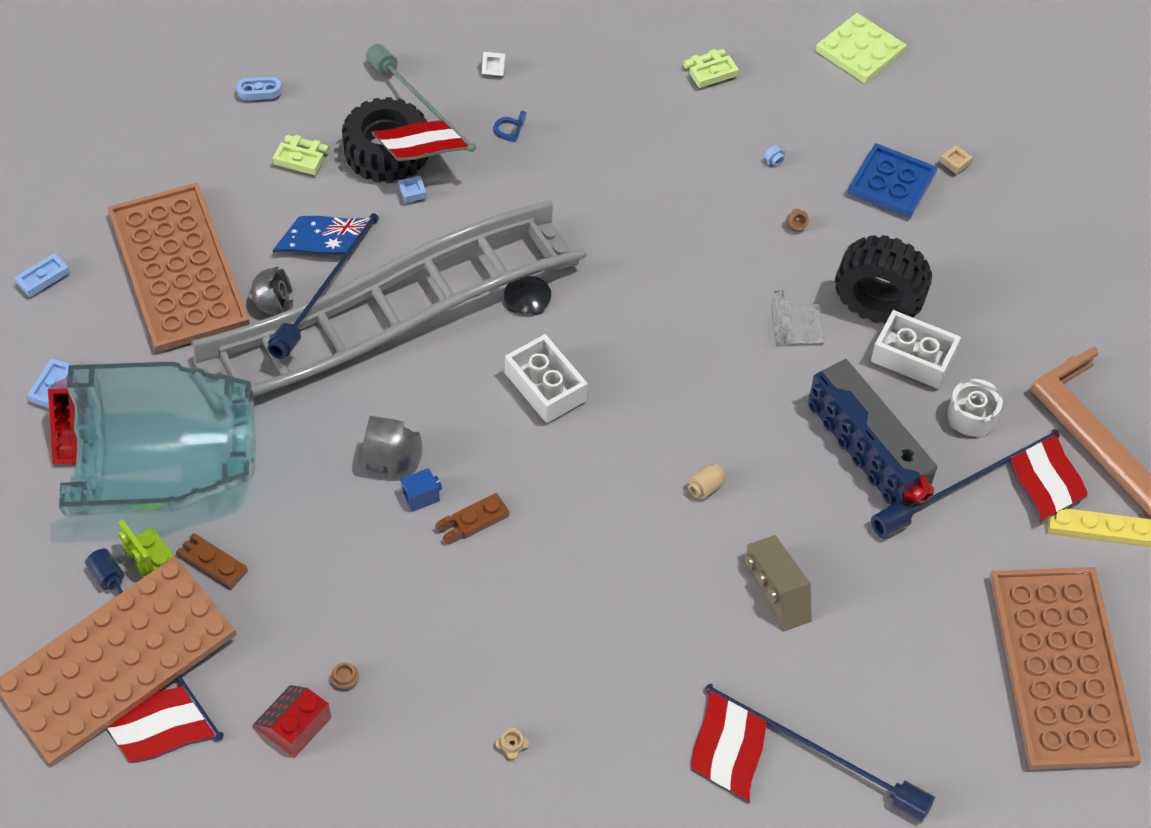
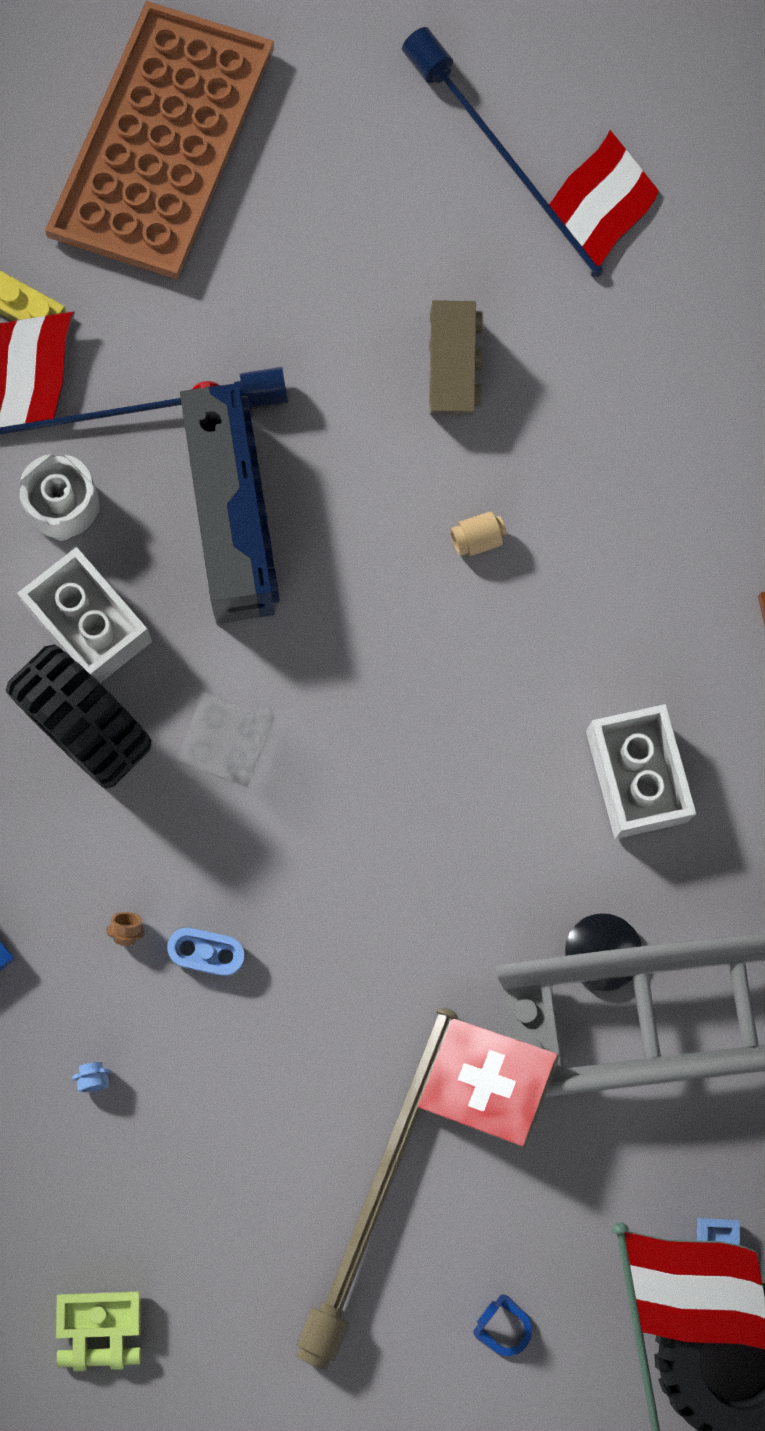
camera: 160 degrees left, 20 degrees up
(573, 205) = (463, 1077): none -> flag
(746, 224) = (207, 951): none -> light blue plate

